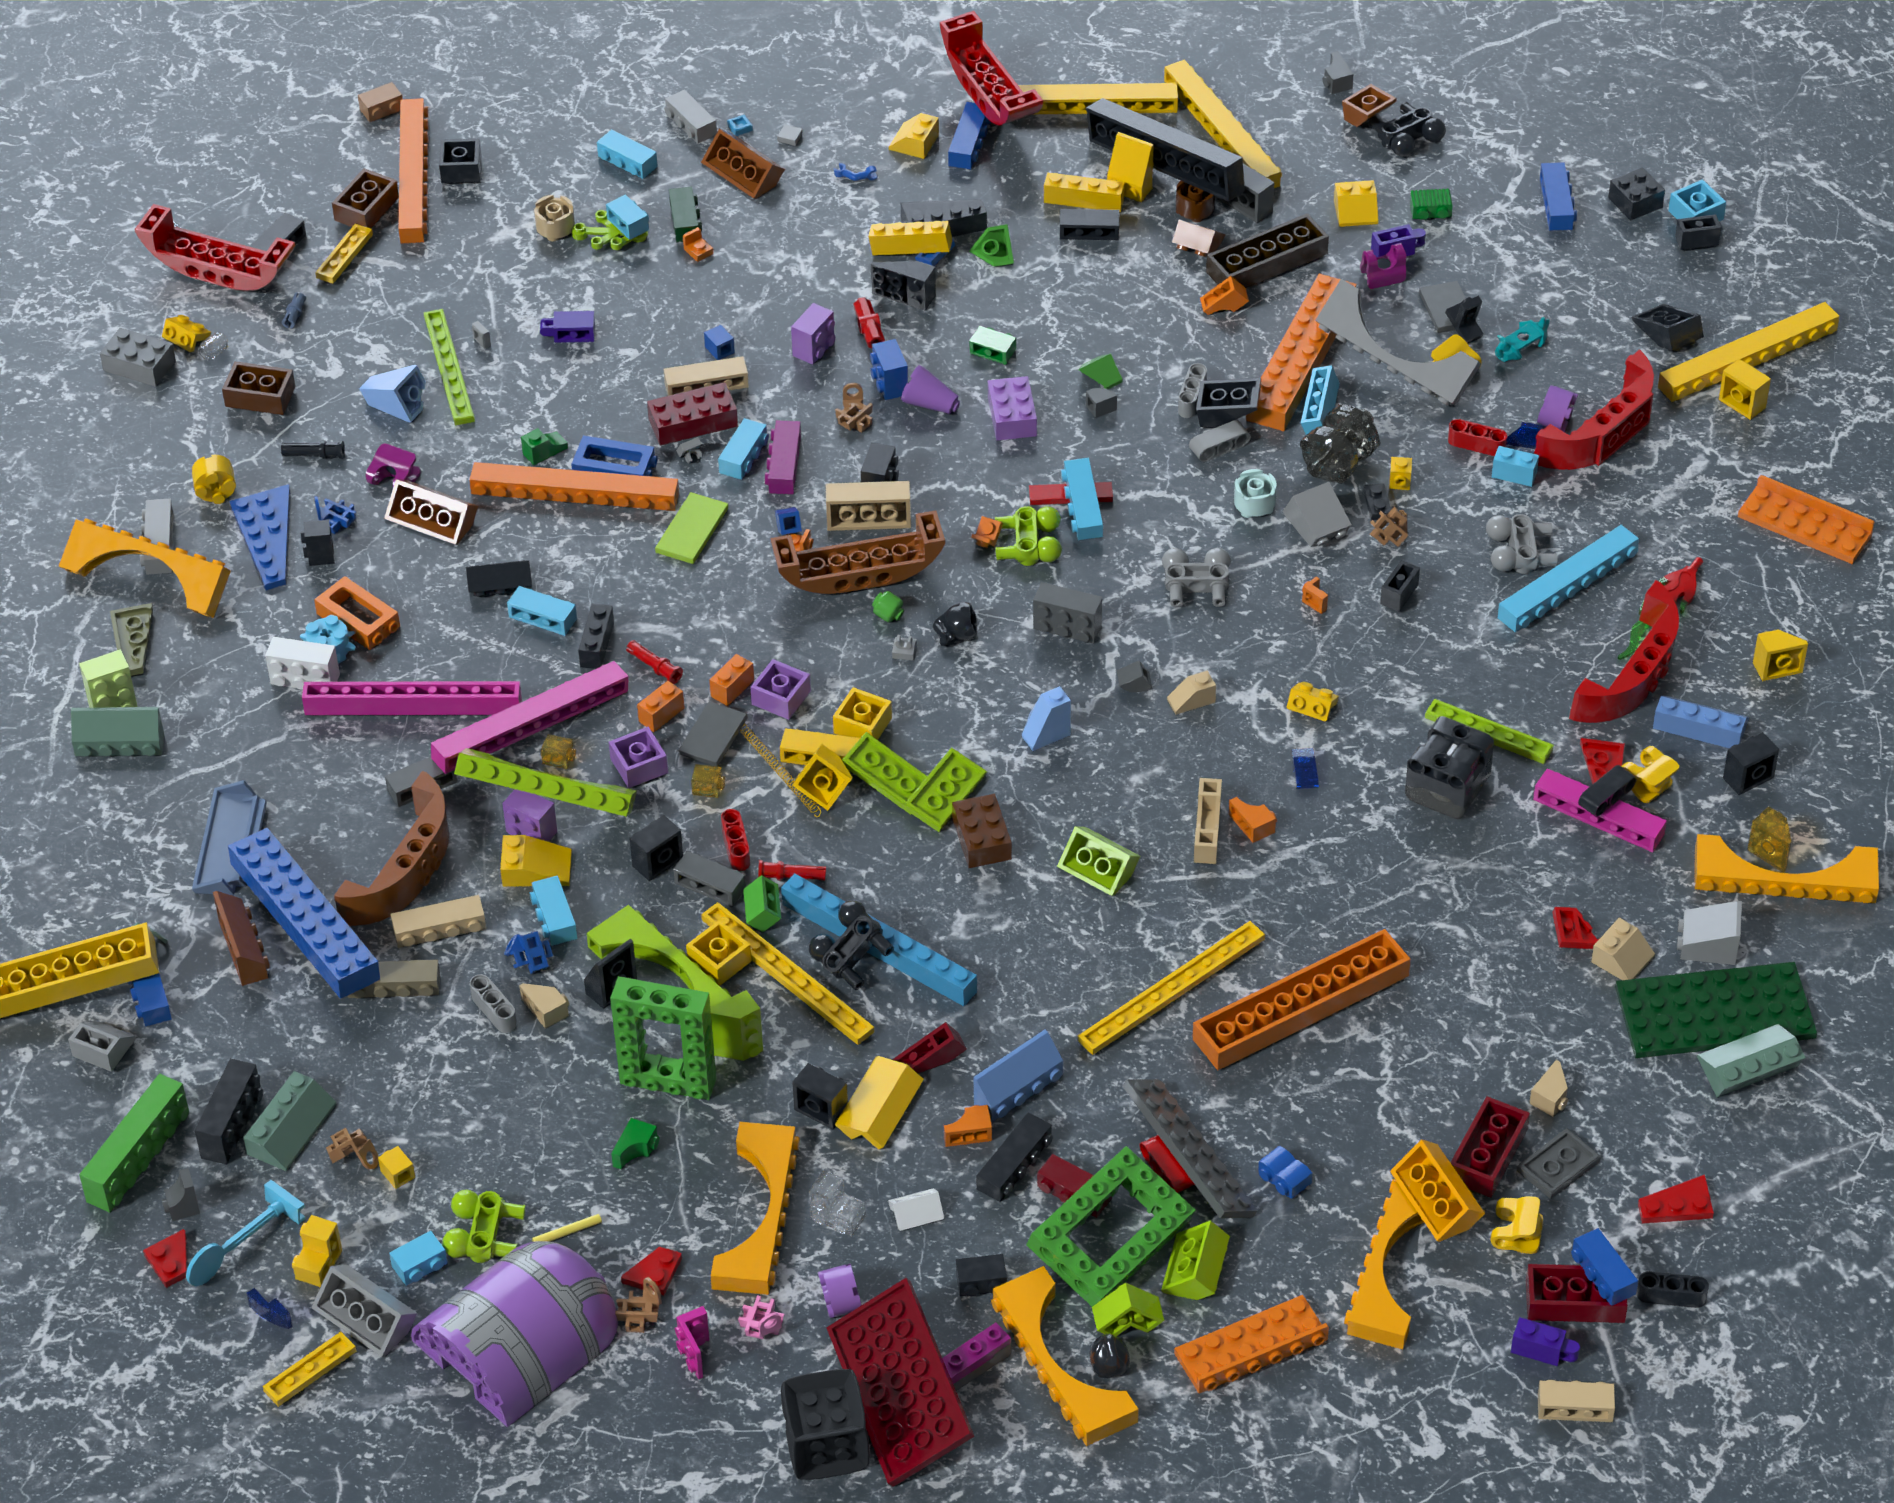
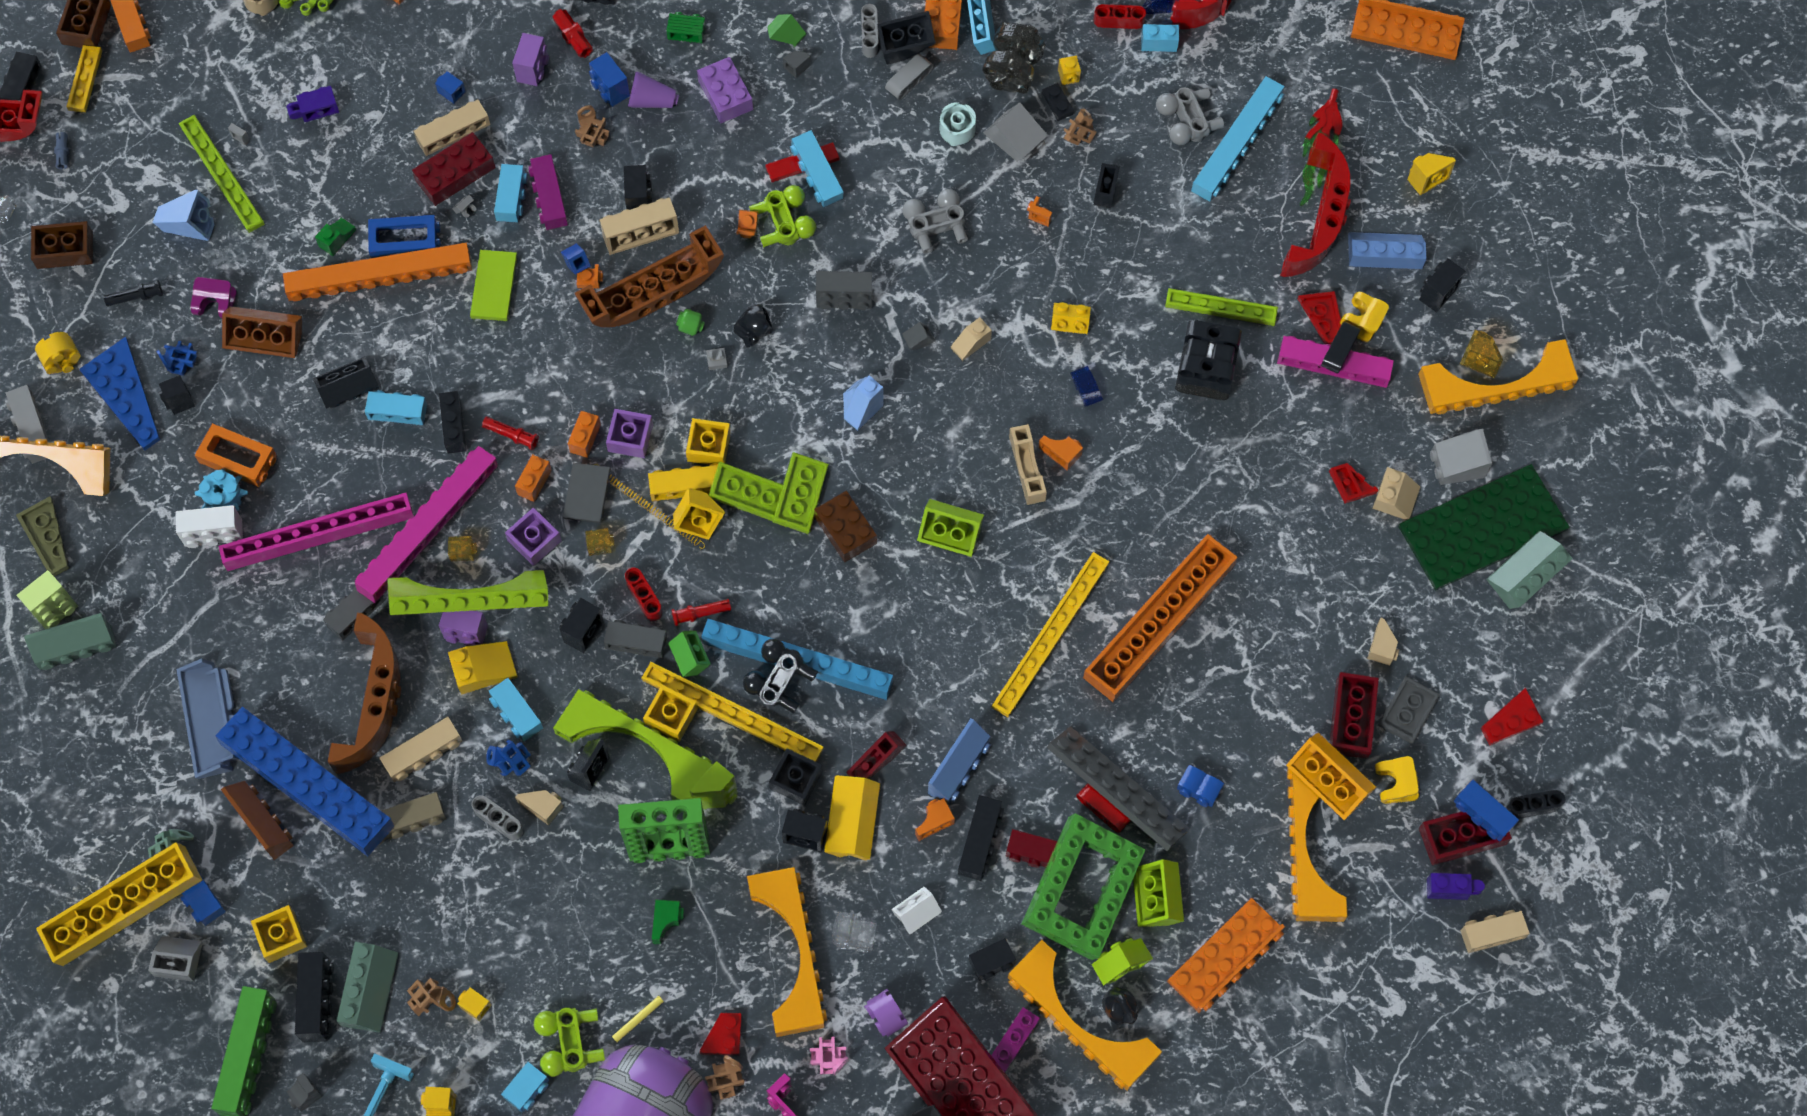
camera: 20 degrees left, 20 degrees up
(215, 1044) = (278, 934): none -> yellow brick
(831, 1045) = (795, 776): none -> black brick

